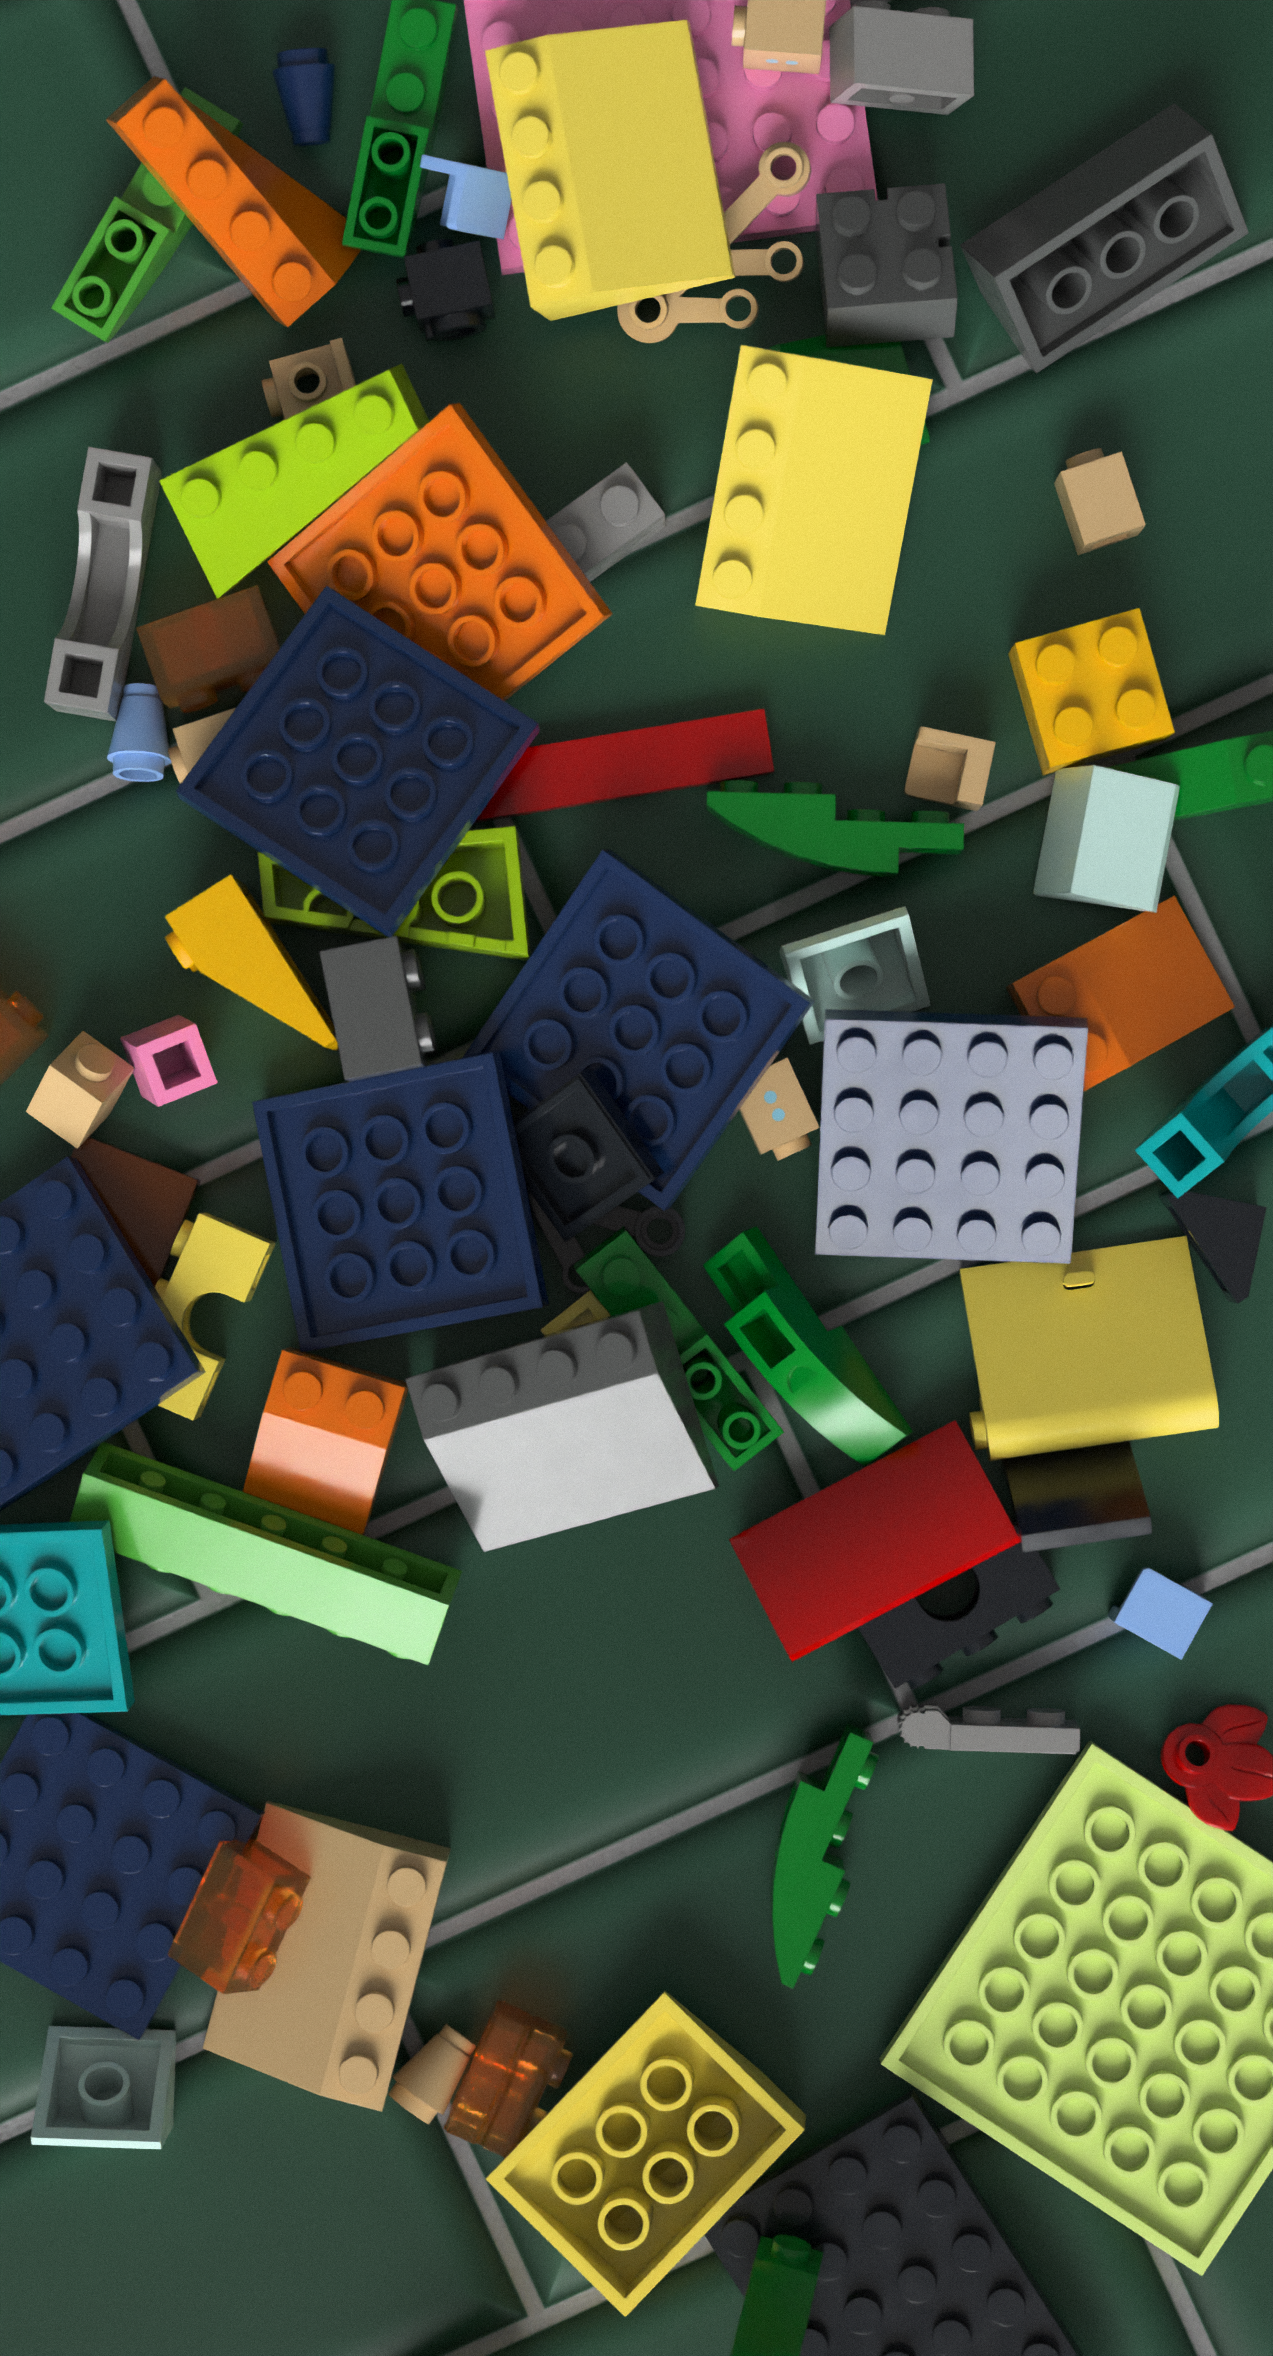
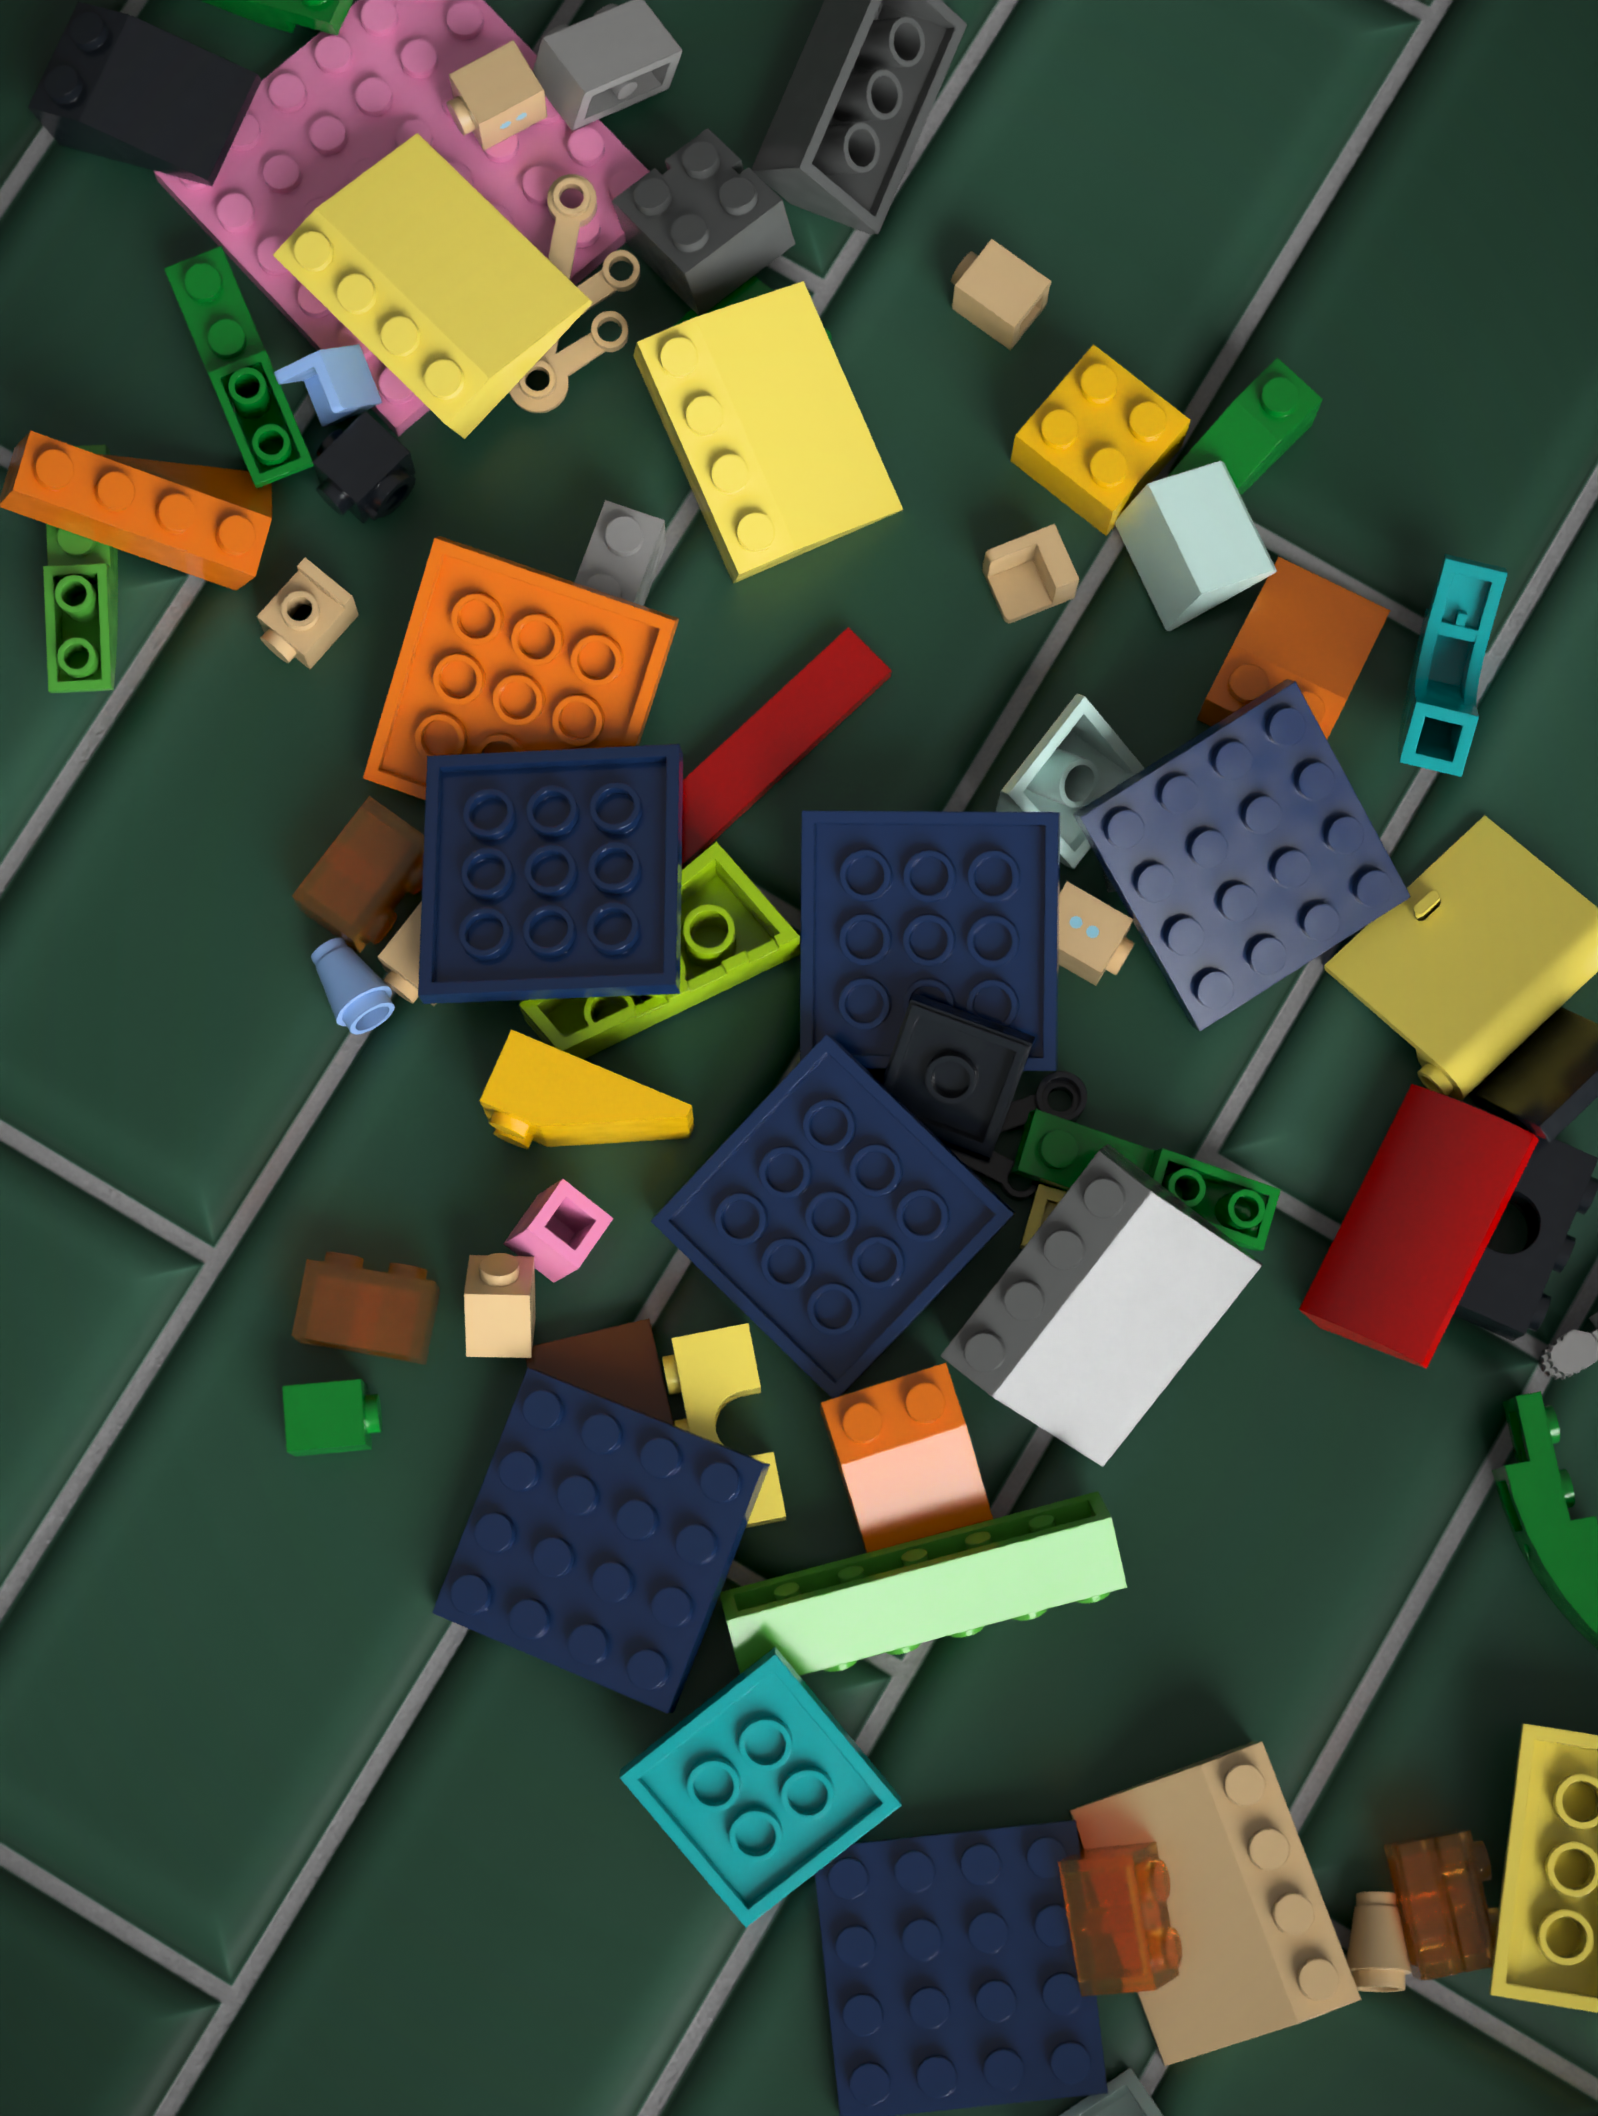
camera: 35 degrees left, 10 degrees down
(113, 548) = (240, 882): light grey arch -> none
(276, 482) = (332, 696): lime wedge -> none
(306, 93) = (144, 395): dark blue cone -> none
(376, 1008) = (696, 1057): dark grey piece -> none
(805, 828) = (951, 698): green slope -> none
(805, 1363) = (1249, 1116): green slope -> none
(1222, 1235) = (1514, 793): black slope -> none

